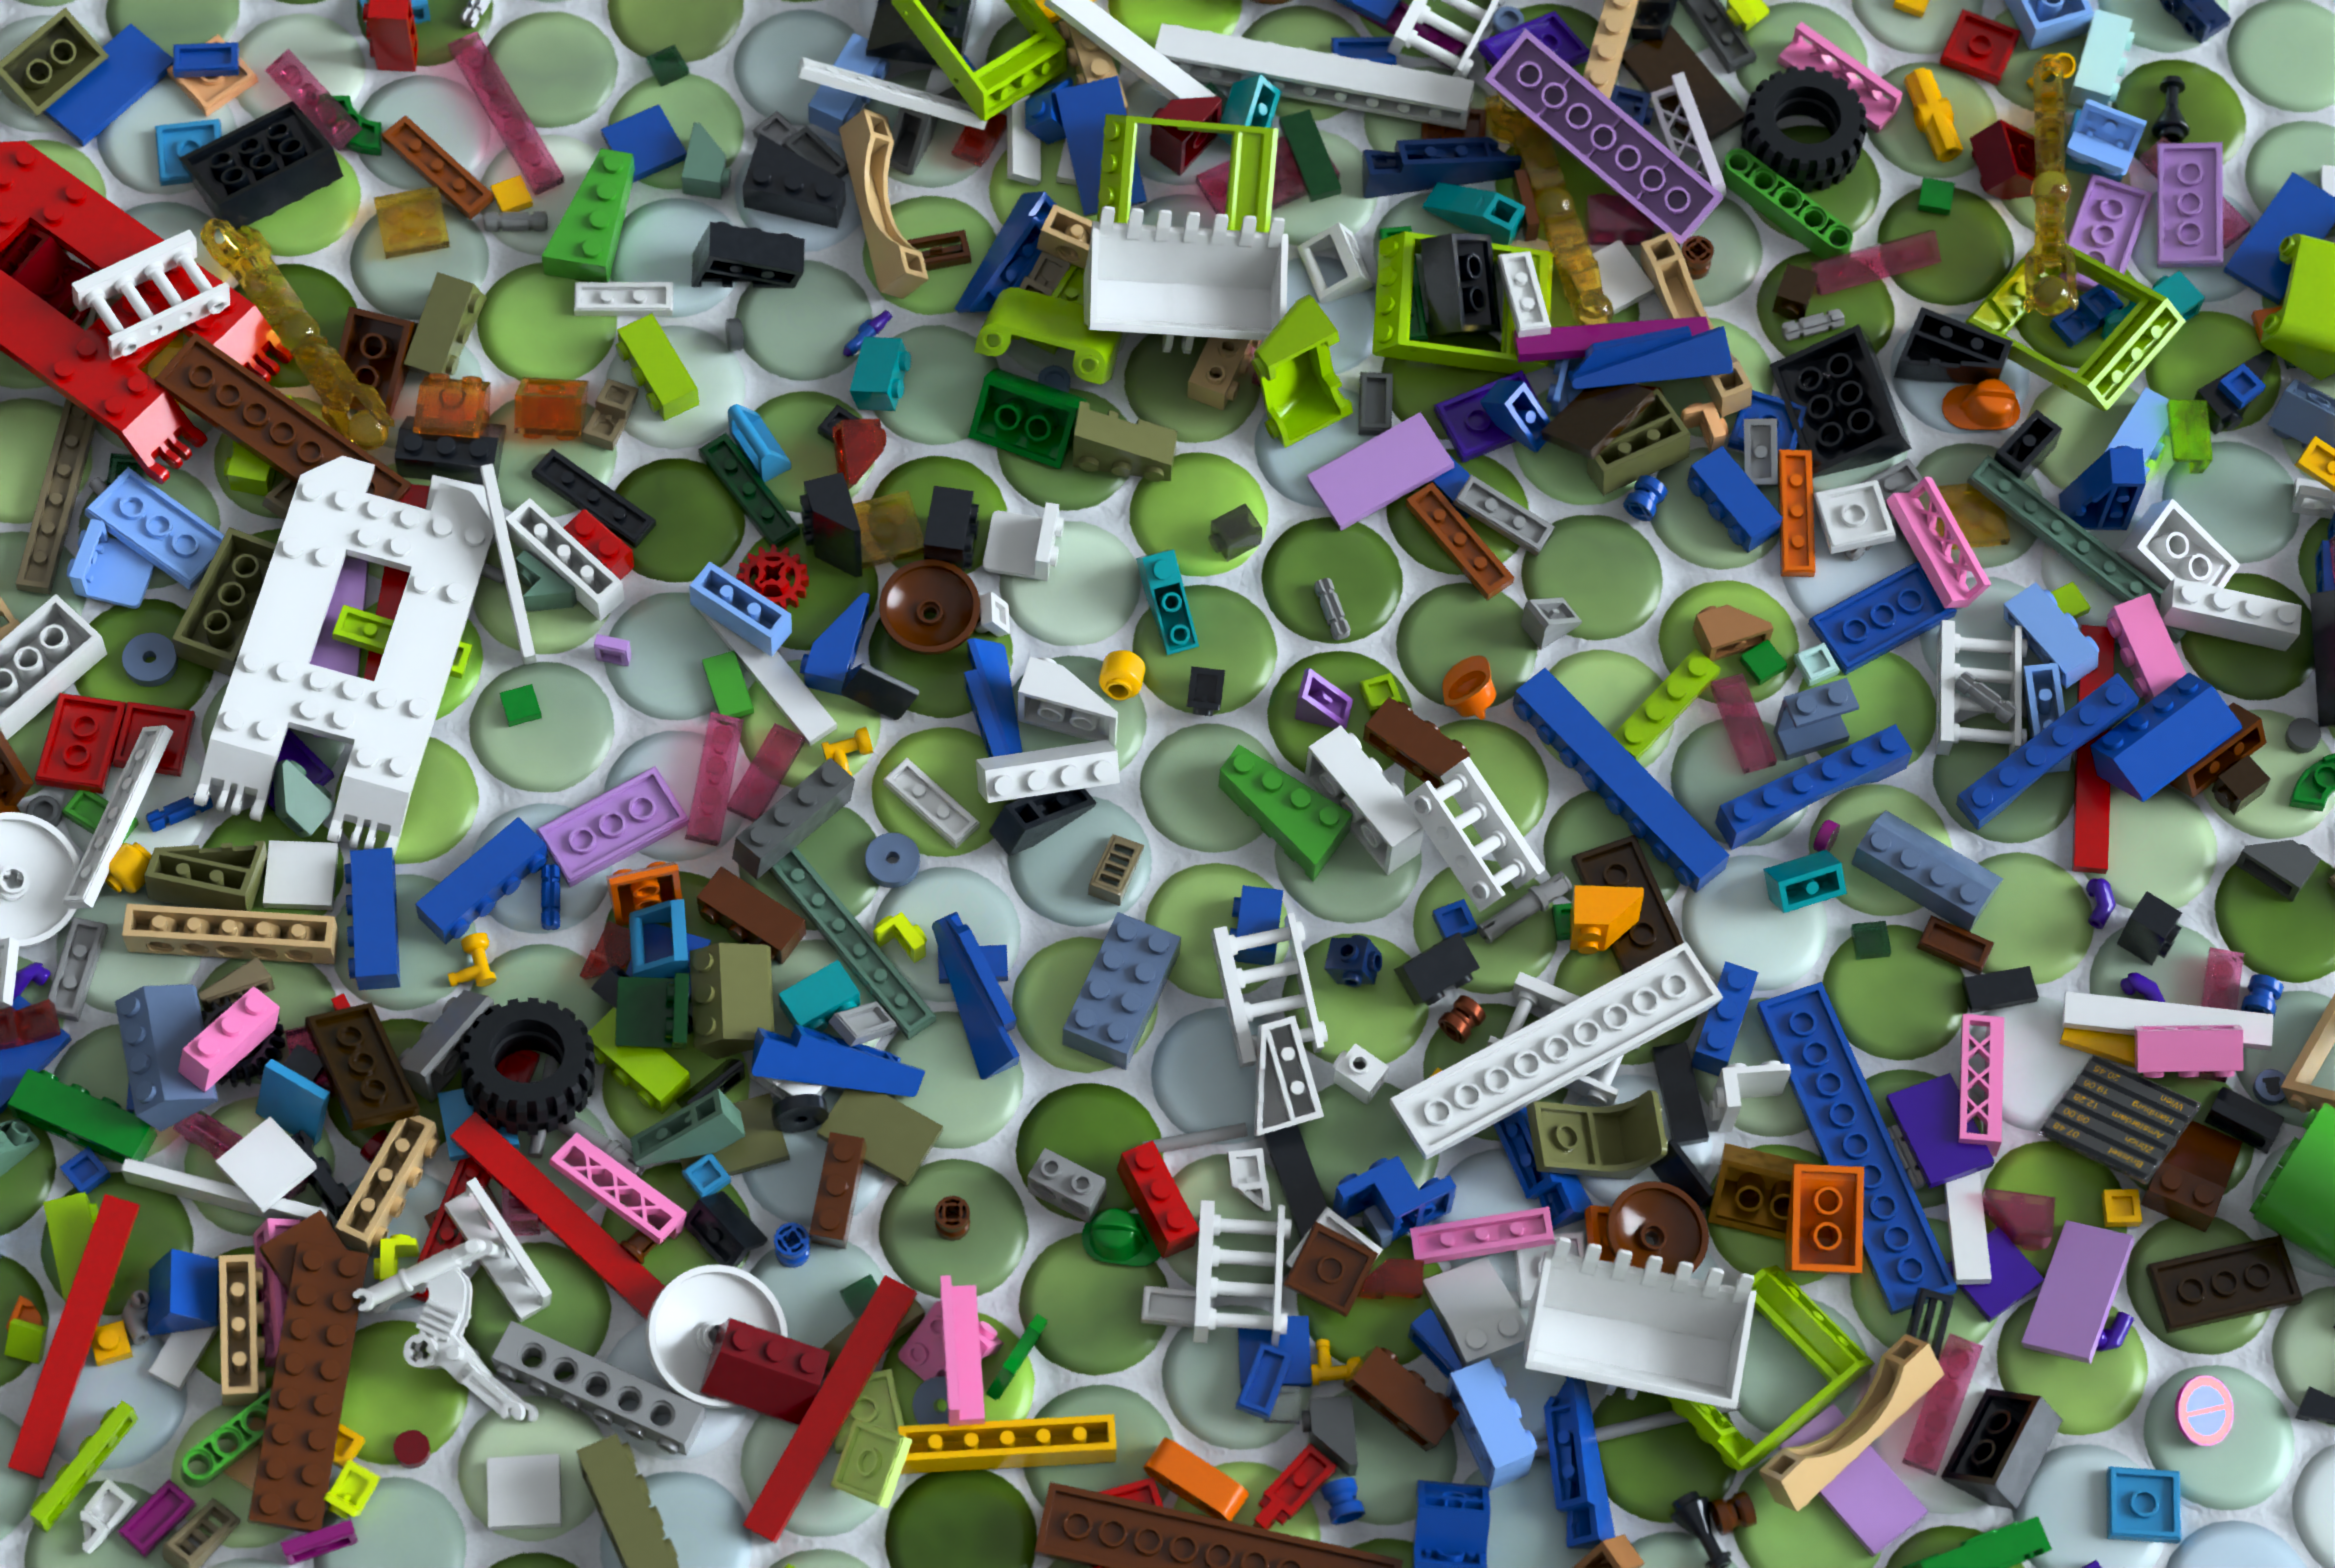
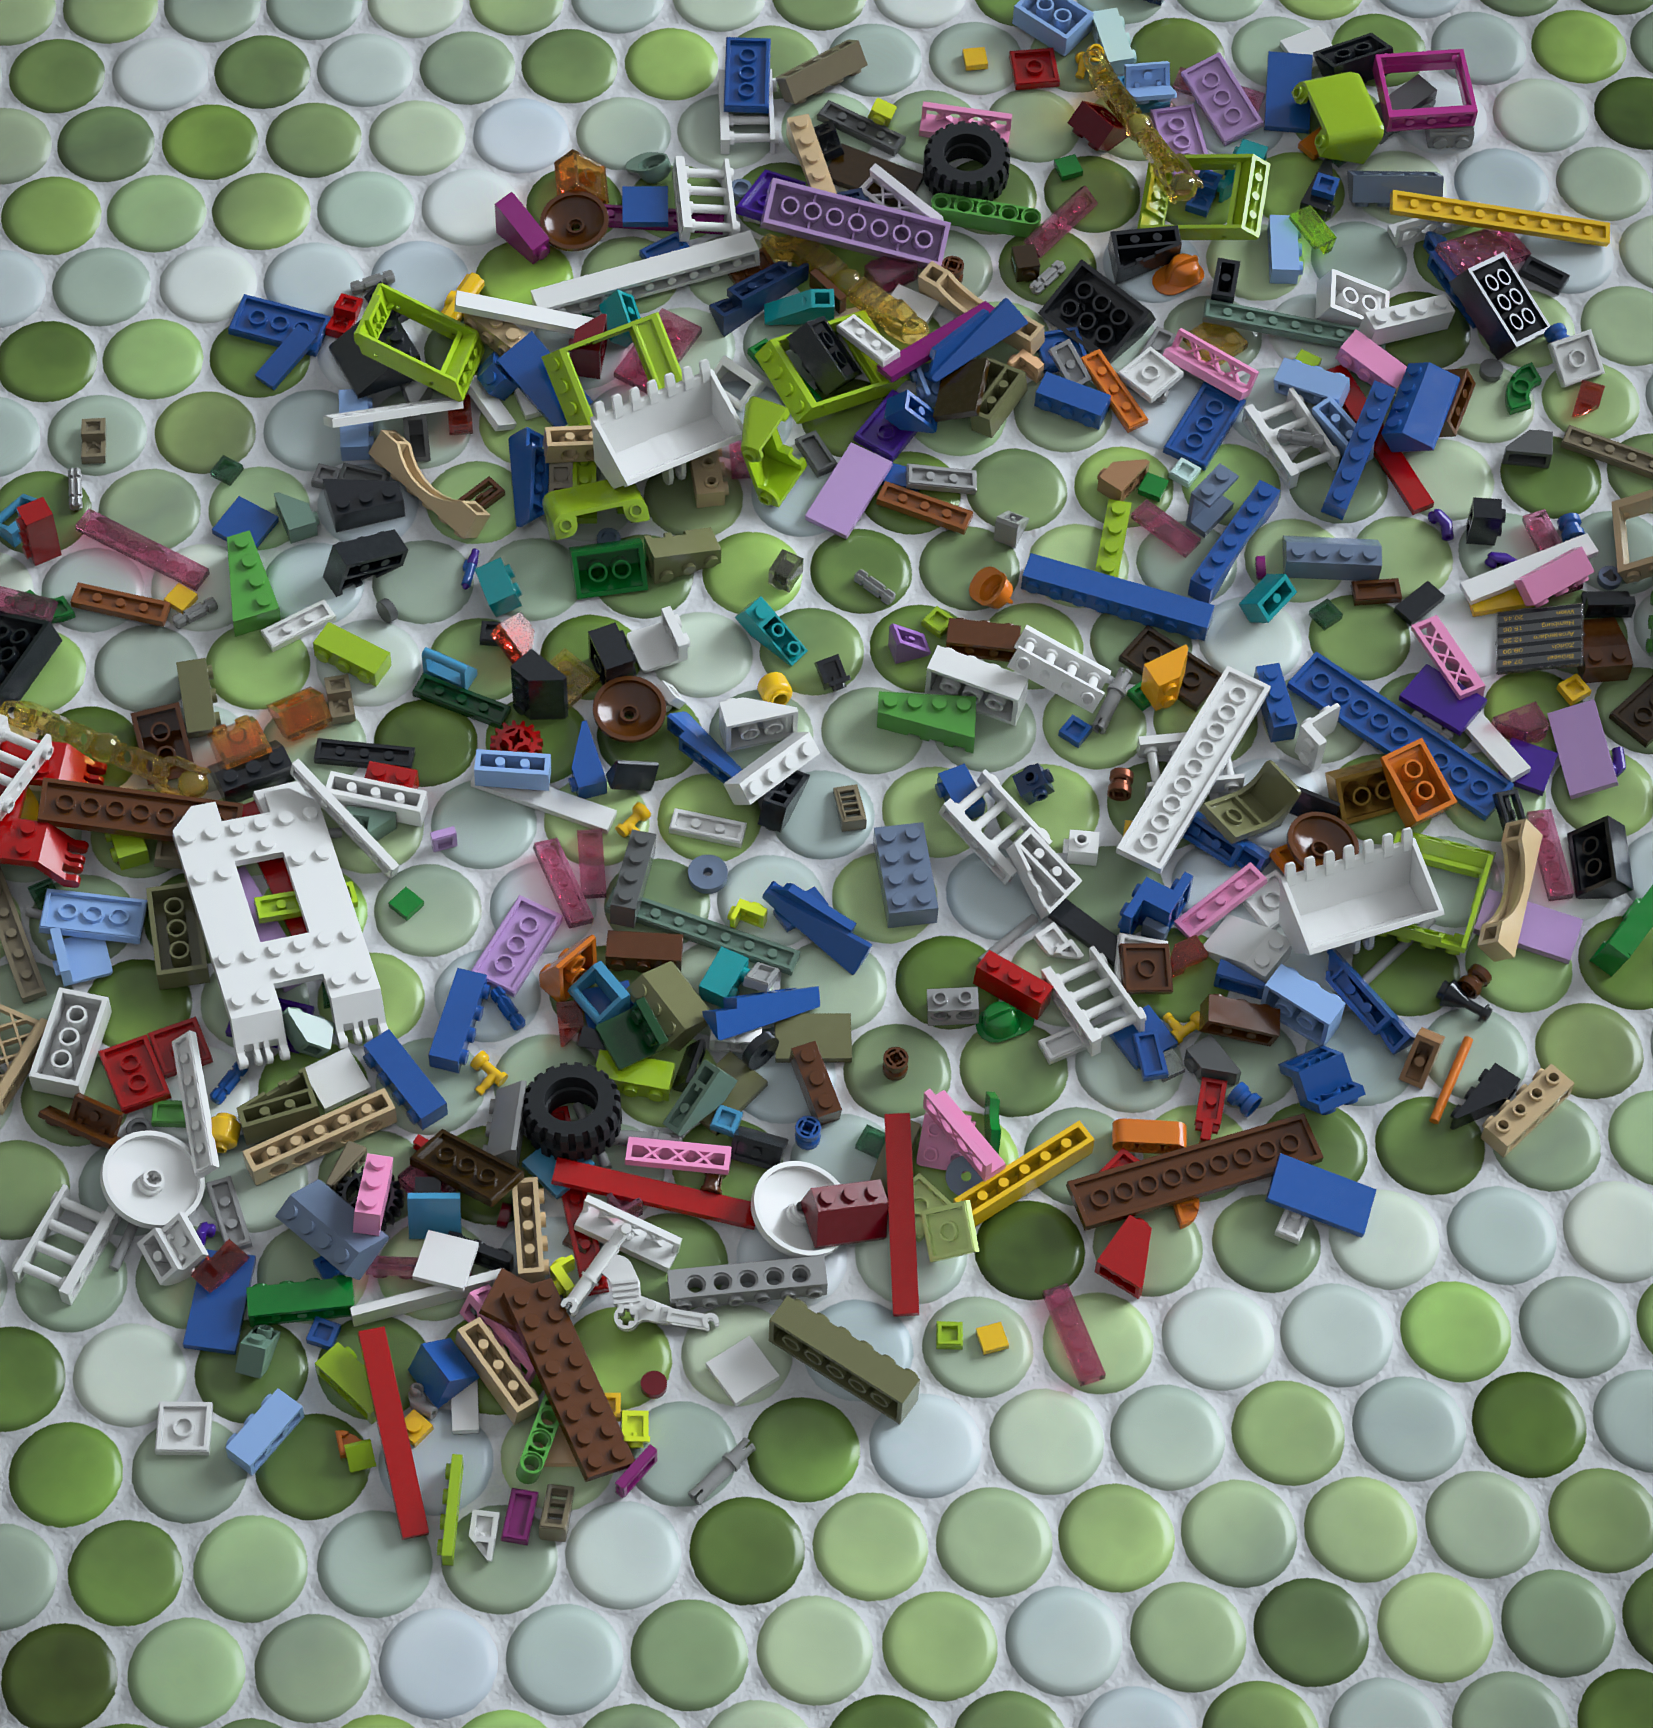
camera: 30 degrees left, 5 degrees down
(151, 673) = (148, 1009): sand blue piece -> none
(411, 222) = (127, 646): clear yellow plate -> none
(728, 685) = (530, 823): bright green tile -> none
(1310, 155) = (680, 325): dark green tile -> none
(1437, 969) = (1086, 762): black brick -> none
(1643, 501) = (1019, 426): blue wheel -> none
(1680, 1094) = (1266, 749): black tile -> none
(1933, 115) = (1035, 120): yellow piece -> none
(2106, 491) = (1291, 282): blue wedge -> none
(2171, 122) = (1175, 56): black piece -> none
(2240, 785) = (1476, 415): dark brown brick -> none

